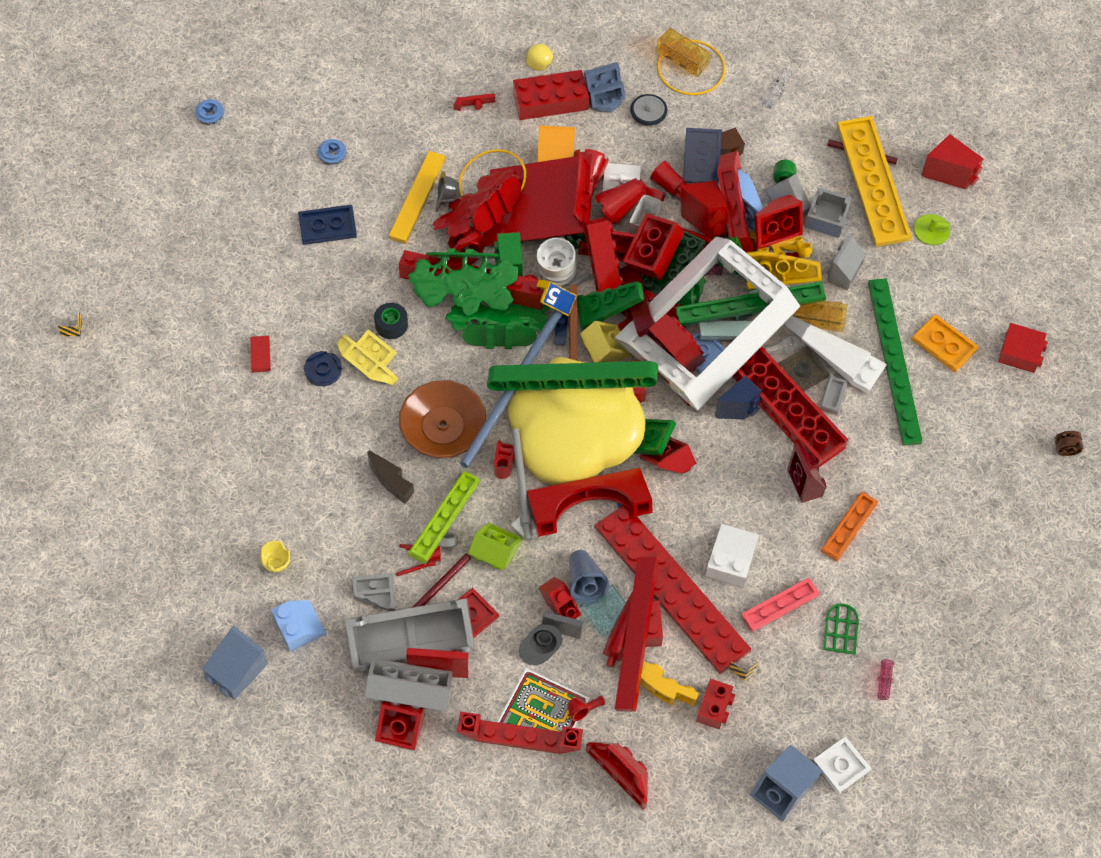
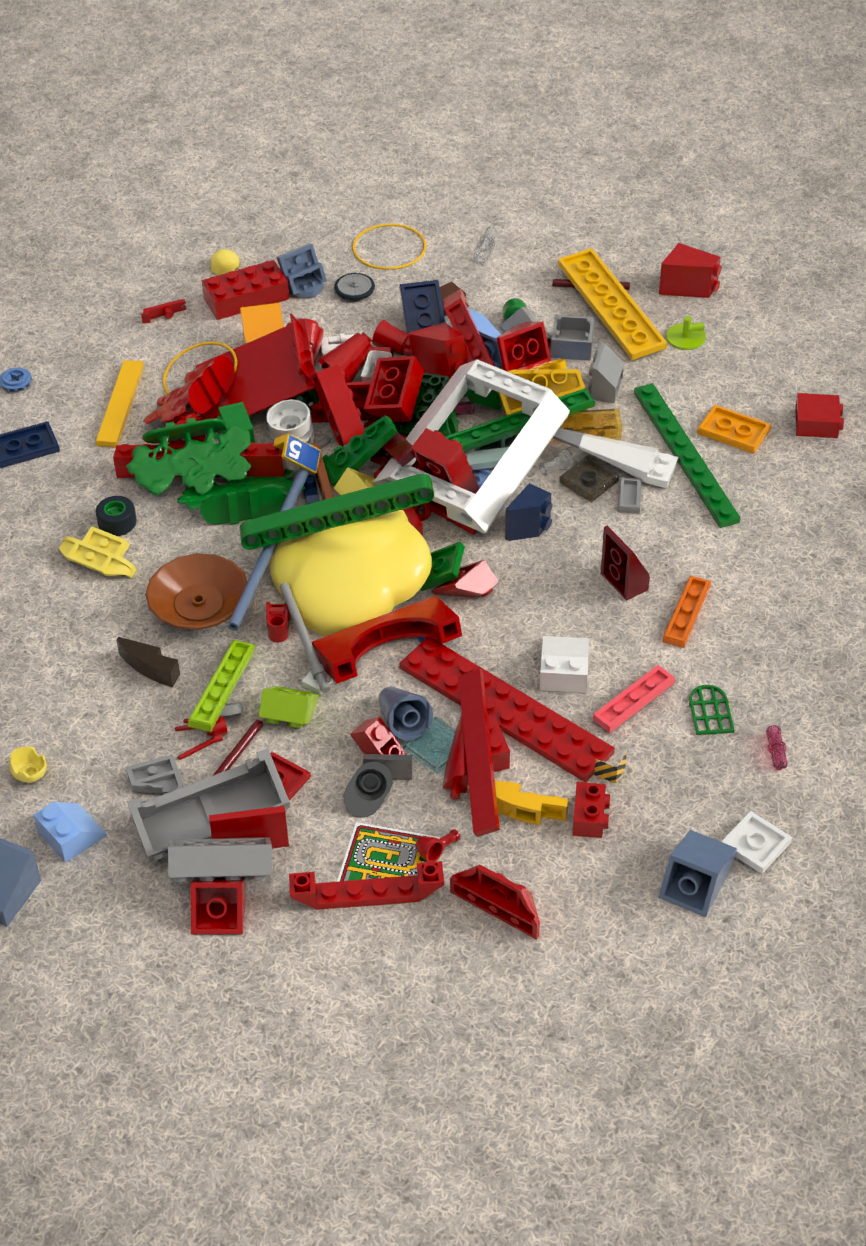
camera: 10 degrees left, 15 degrees down
(317, 370) = (46, 576): dark blue tile -> none
(447, 190) = (151, 387): dark grey piece -> none
(683, 52) = (378, 232): clear yellow brick -> none
(792, 408) = (588, 512): red tile -> none

